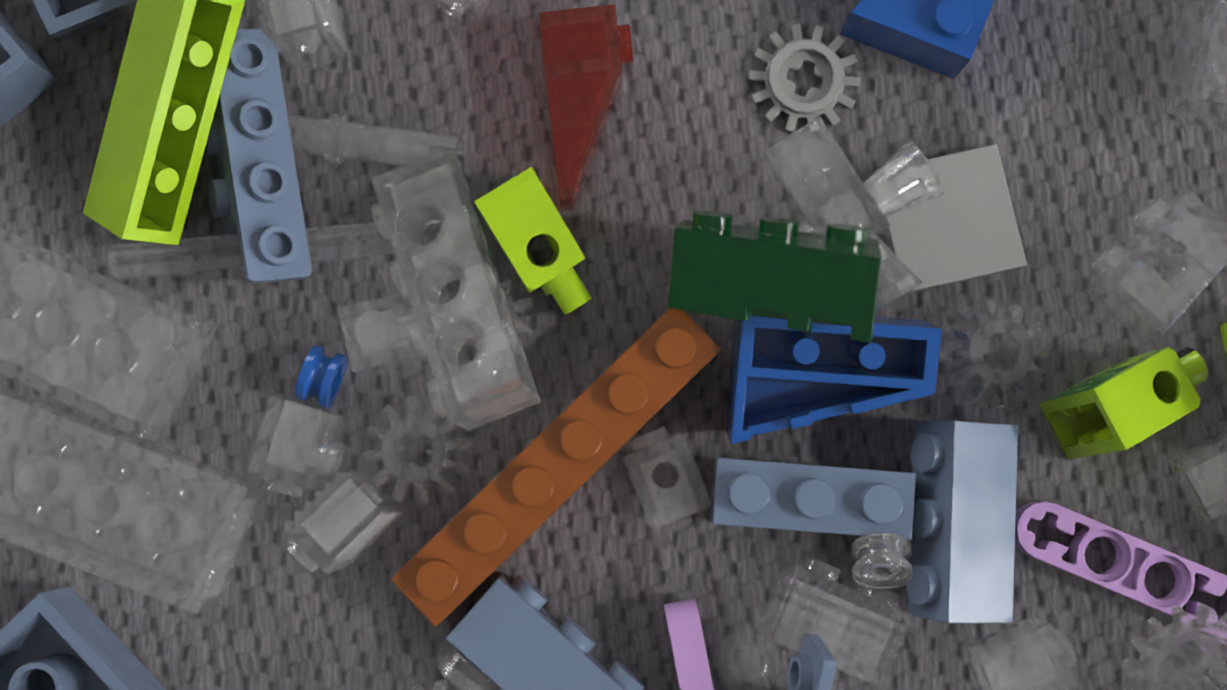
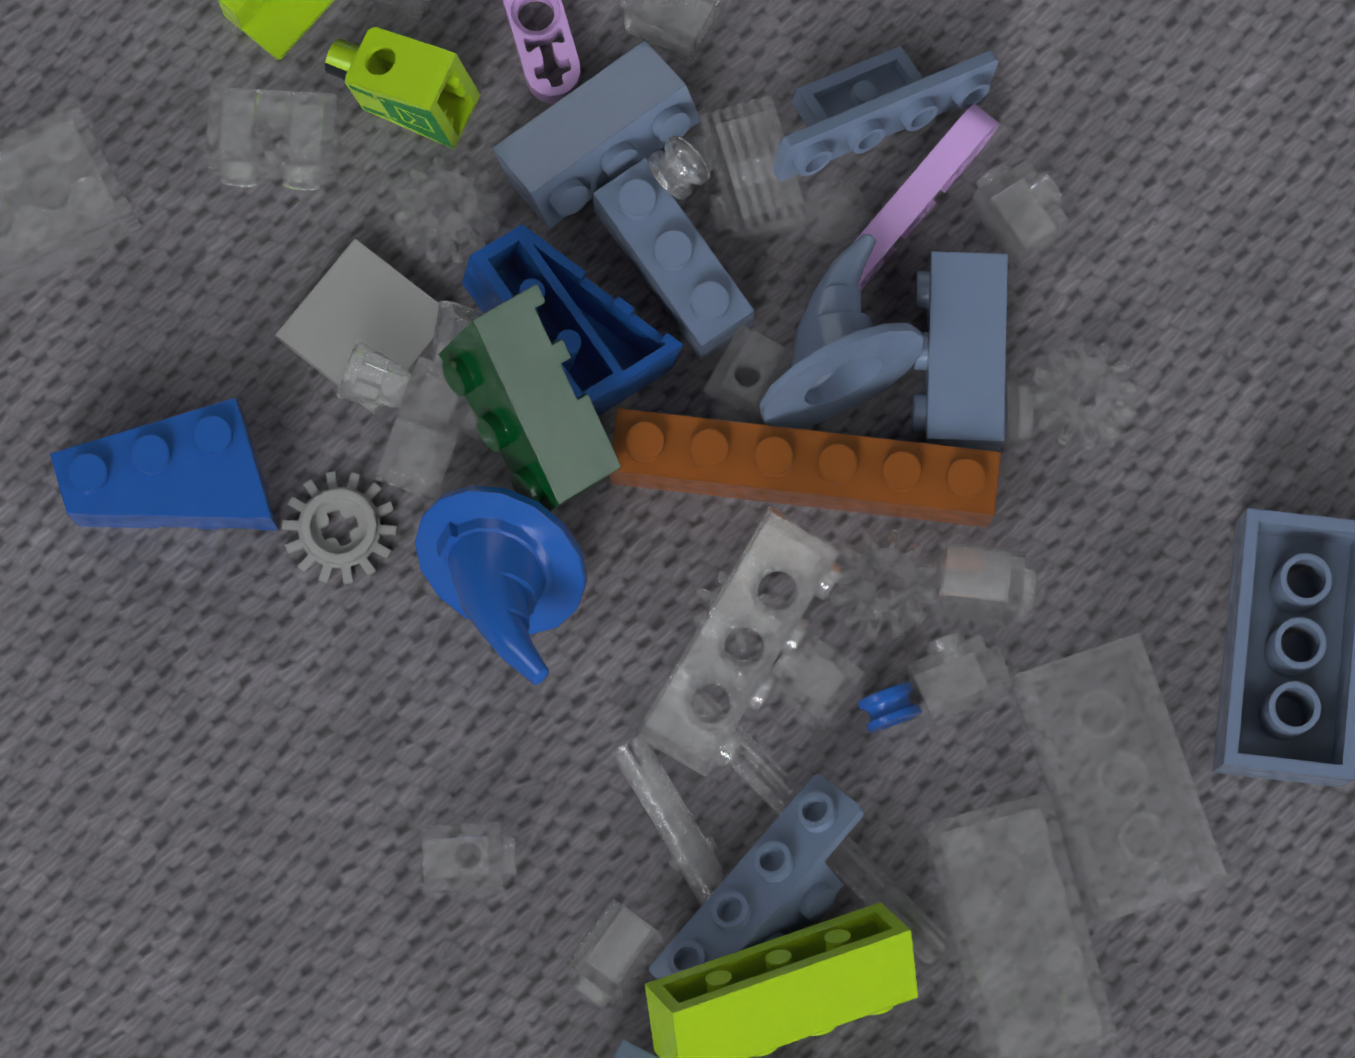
camera: 130 degrees left, 5 degrees down
(516, 215) = (645, 626): lime torso -> none
(582, 78) = (486, 696): clear red slope -> none
(631, 567) = (839, 351): none -> sand blue piece
(660, 154) = (502, 568): none -> blue piece

